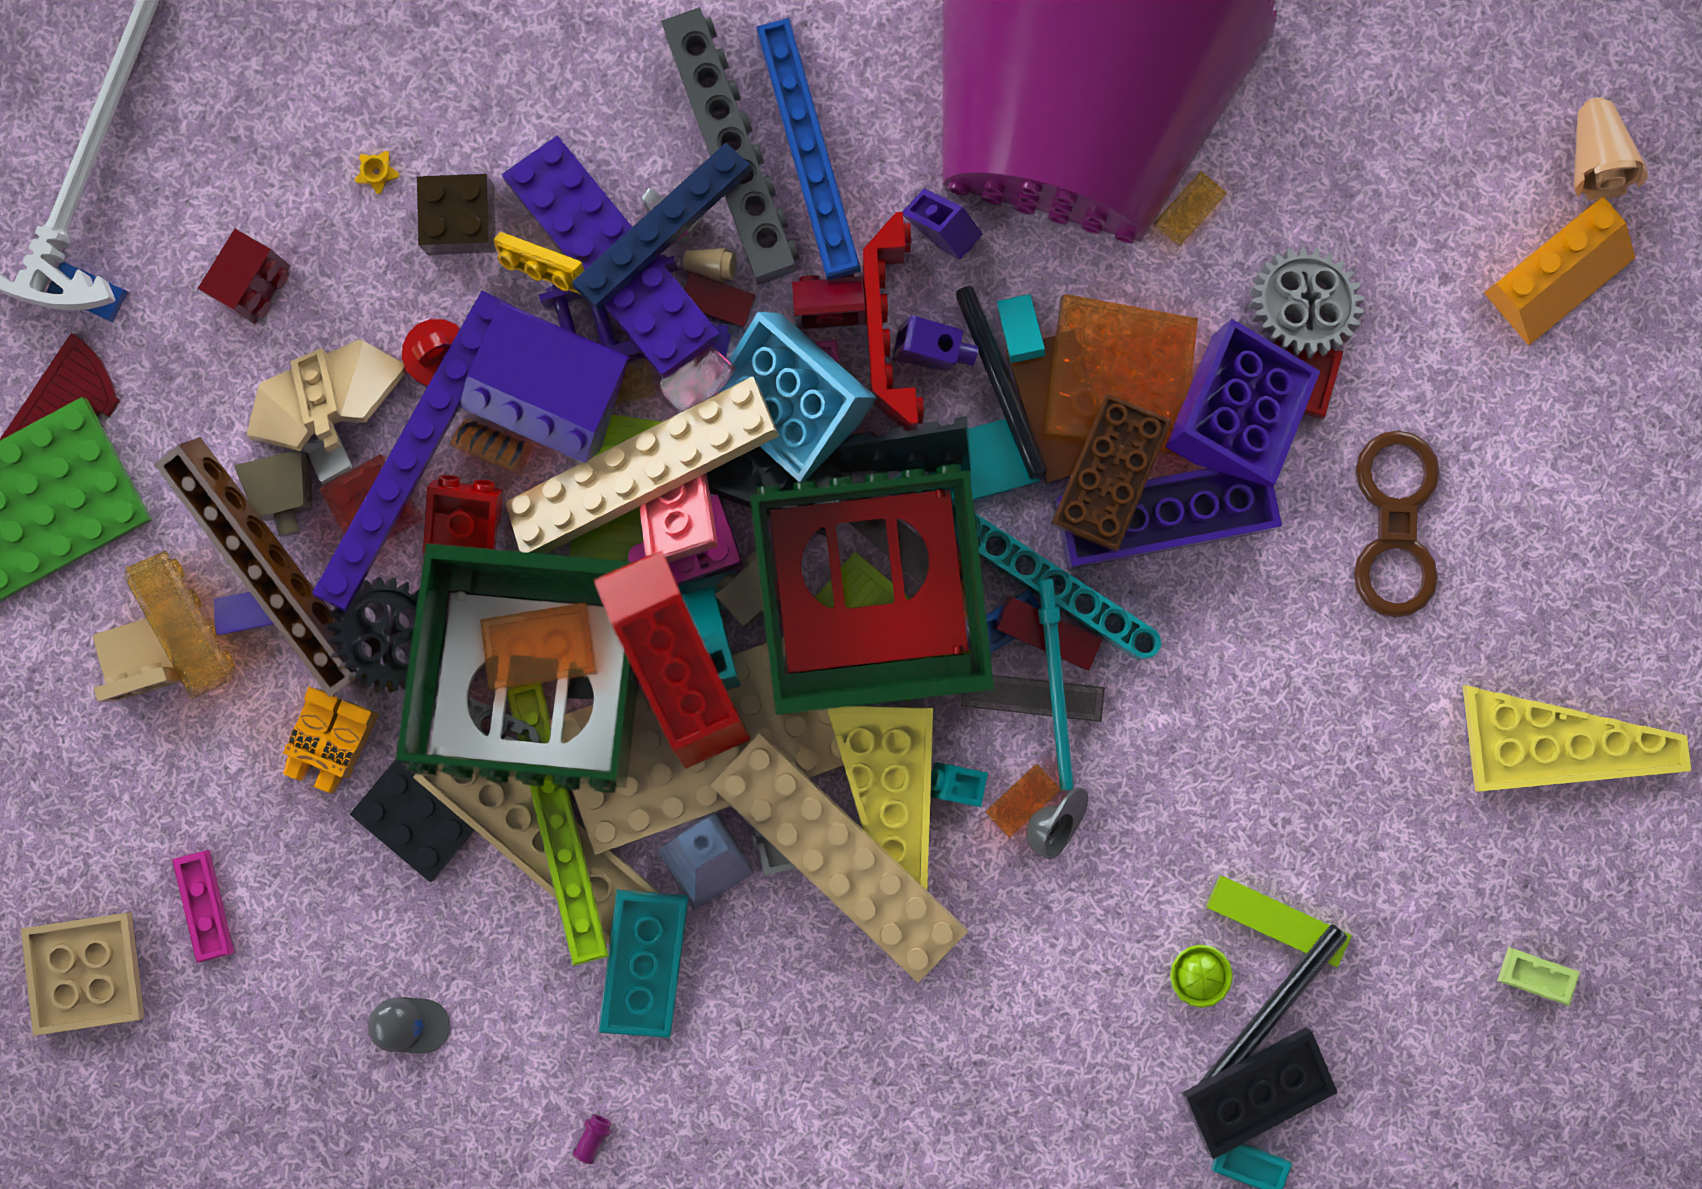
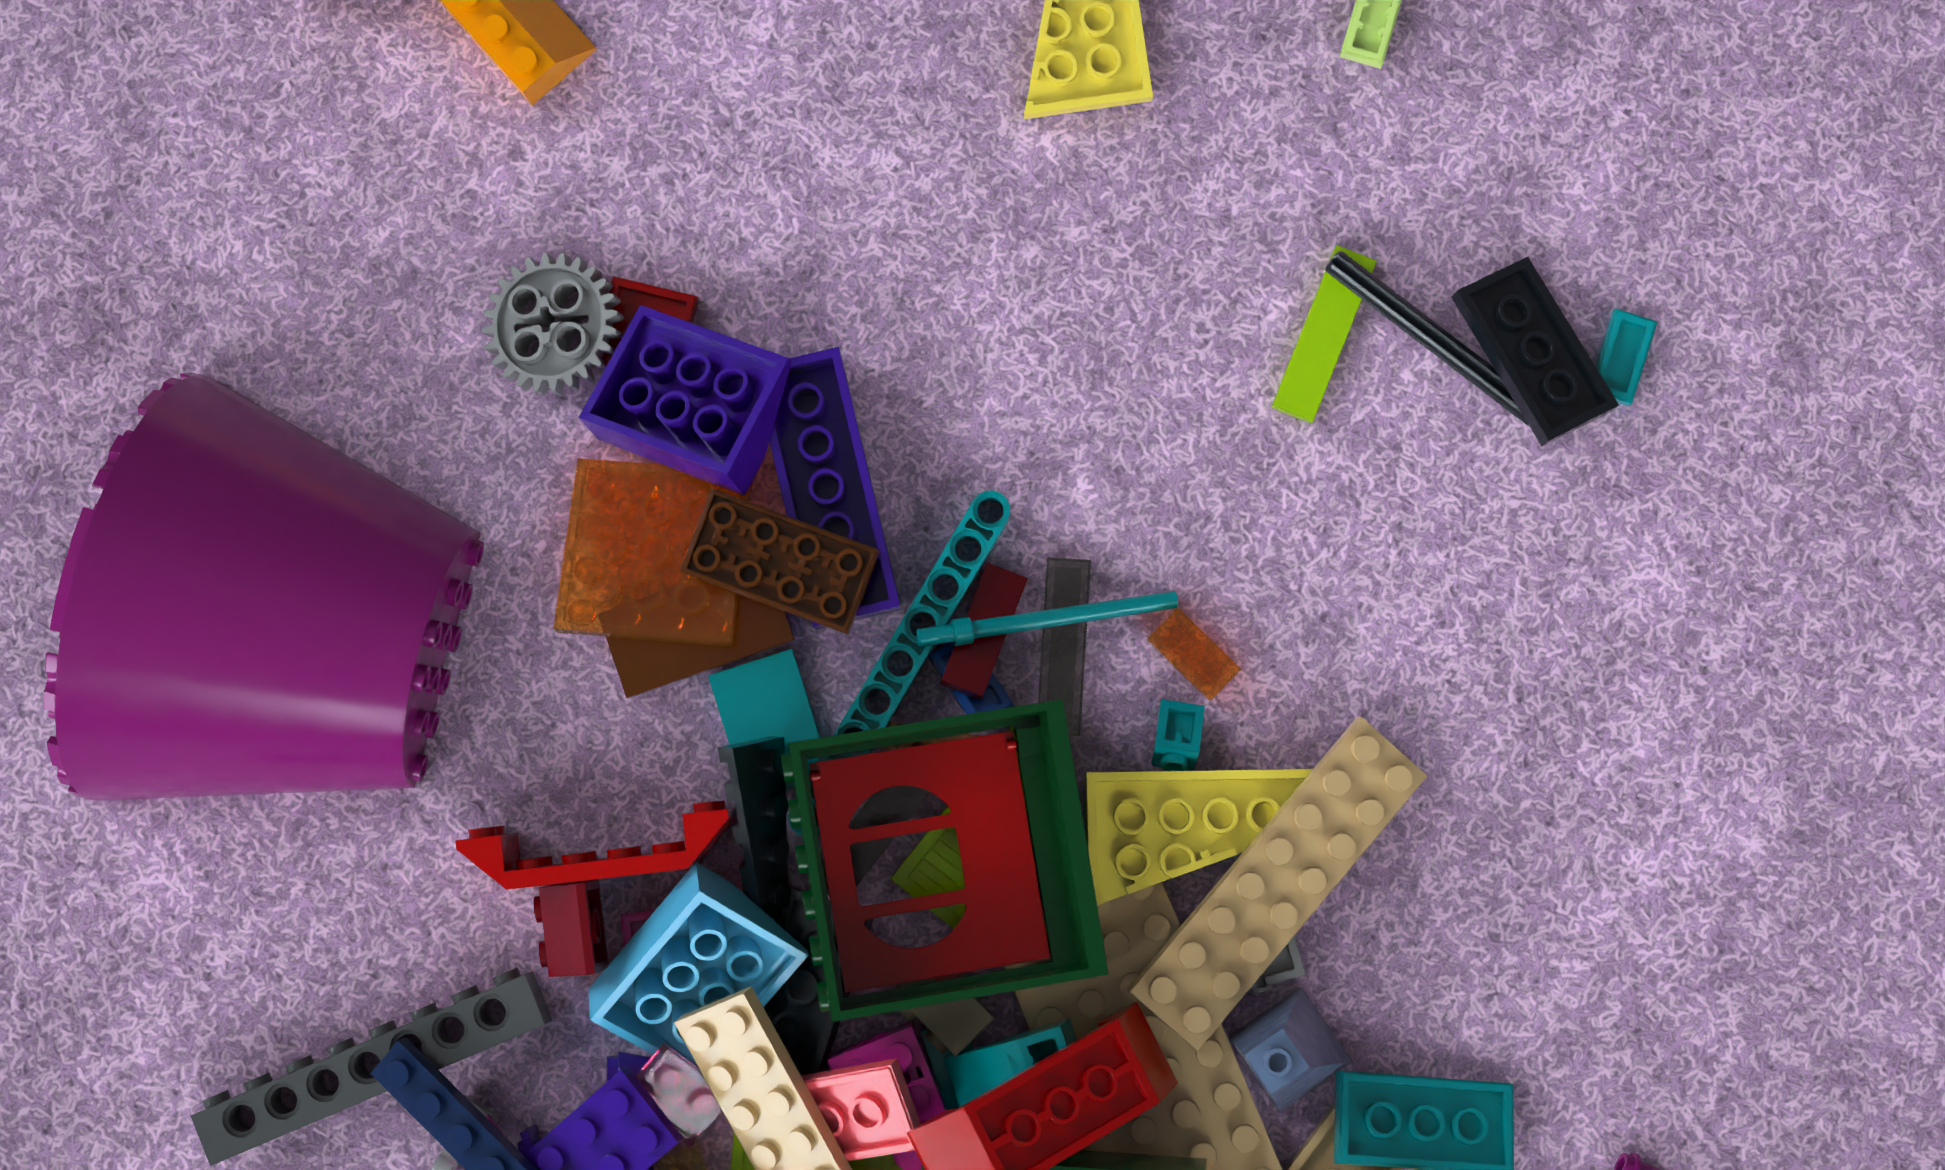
camera: 90 degrees left, 0 degrees up
(711, 263) = (526, 1081): tan cone -> none
(720, 300) = (574, 1069): dark red tile -> none
(808, 149) = (373, 964): blue tile -> none
(919, 340) = (624, 811): dark purple torso -> none
(943, 223) = (465, 785): dark purple slope -> none
(1001, 382) = (667, 702): black axle -> none
(1020, 328) = (598, 681): teal tile -> none
(1054, 826) = (1223, 613): dark grey cap -> none
(1190, 208) = (436, 472): clear yellow tile -> none
(1201, 976) = (1397, 426): lime hat -> none
(1396, 523) = (826, 204): reddish brown bar -> none

